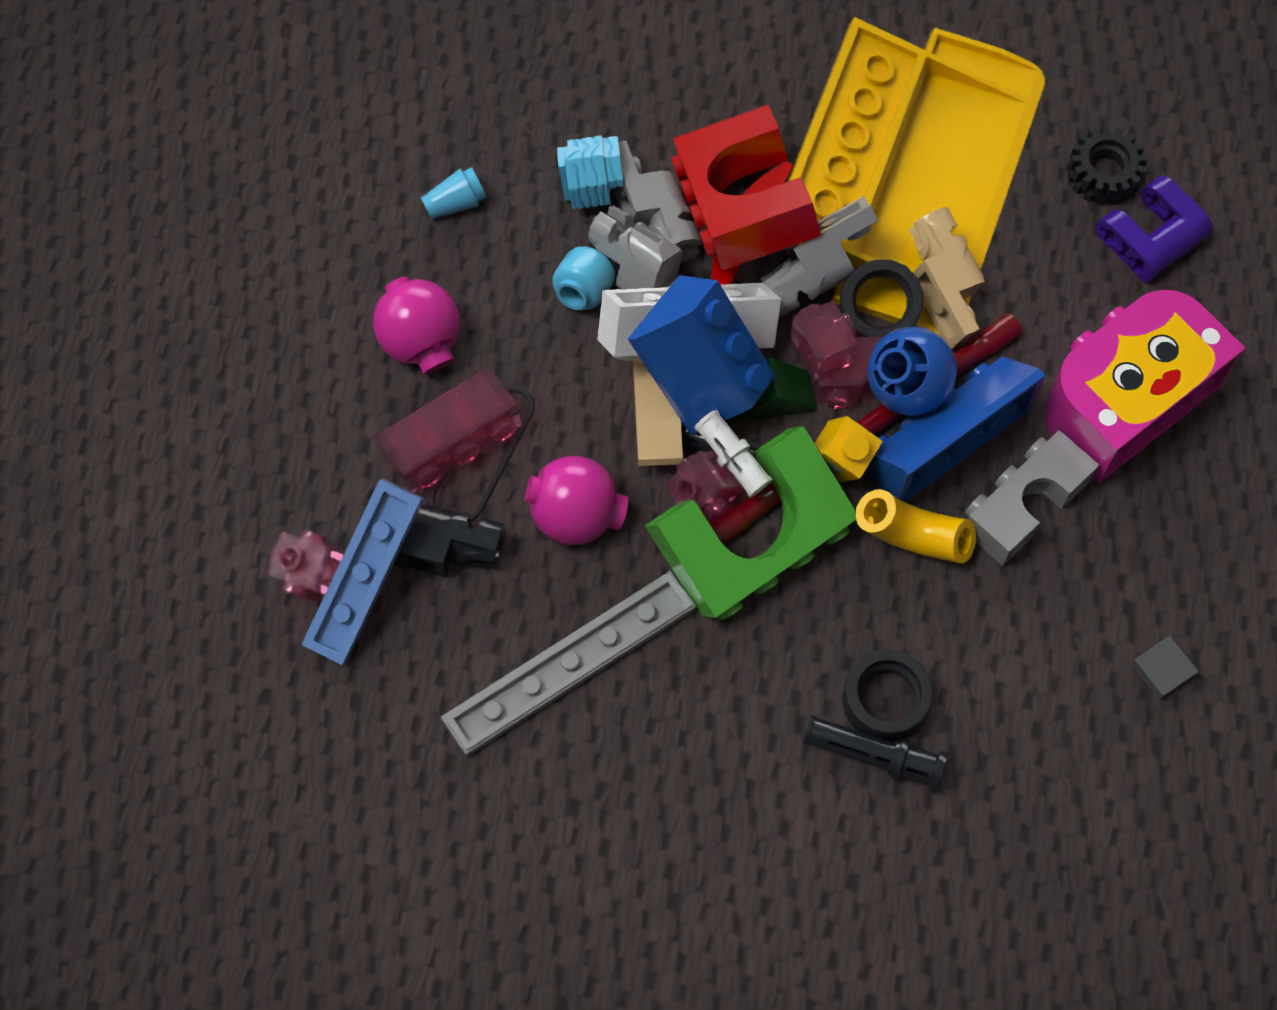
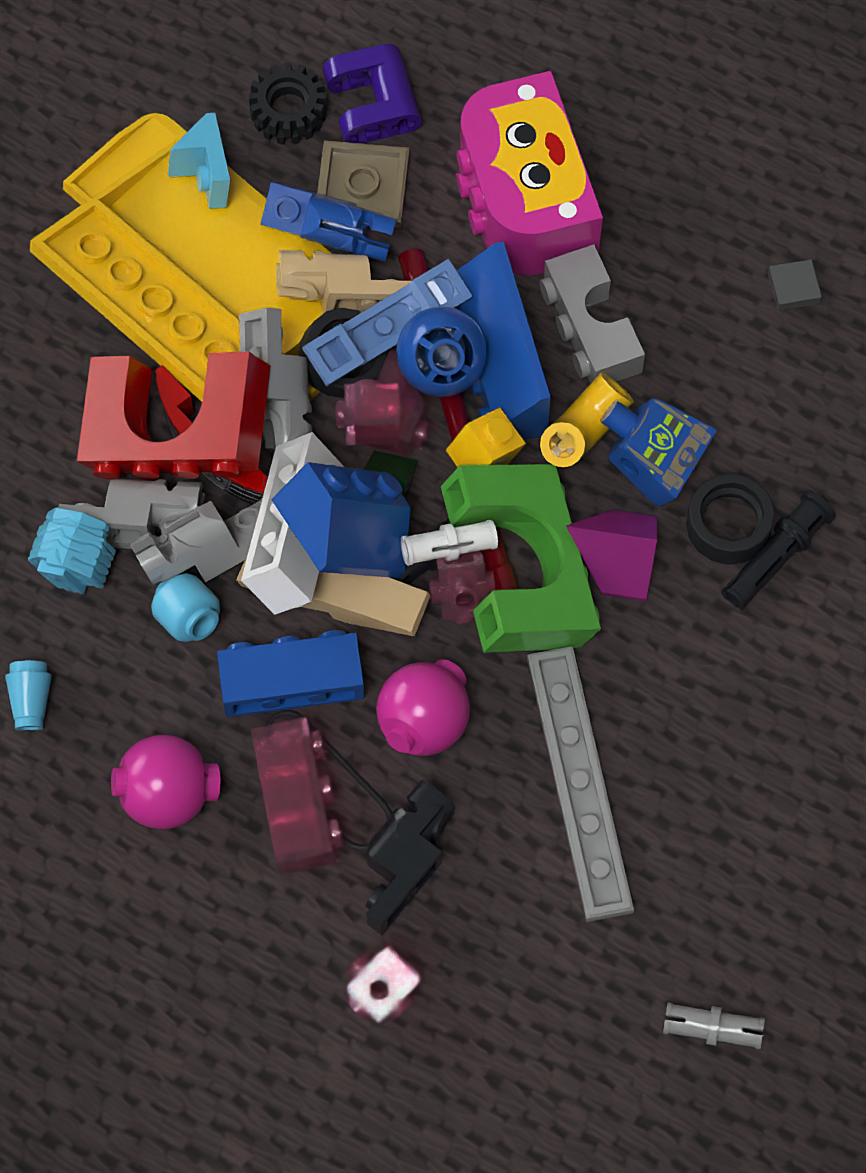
camera: 65 degrees left, 0 degrees up
(362, 571) = (419, 927): medium blue plate -> none
(383, 865) = (714, 1025): none -> light grey pin
(561, 383) = (290, 673): none -> blue brick
(808, 607) = (618, 551): none -> magenta slope
(898, 306) = (379, 326): none -> medium blue slope
(924, 598) = (656, 446): none -> blue torso
(1004, 240) = (326, 220): none -> blue plate
(1012, 116) = (202, 155): none -> medium azure slope
(1063, 258) = (366, 176): none -> dark tan tile

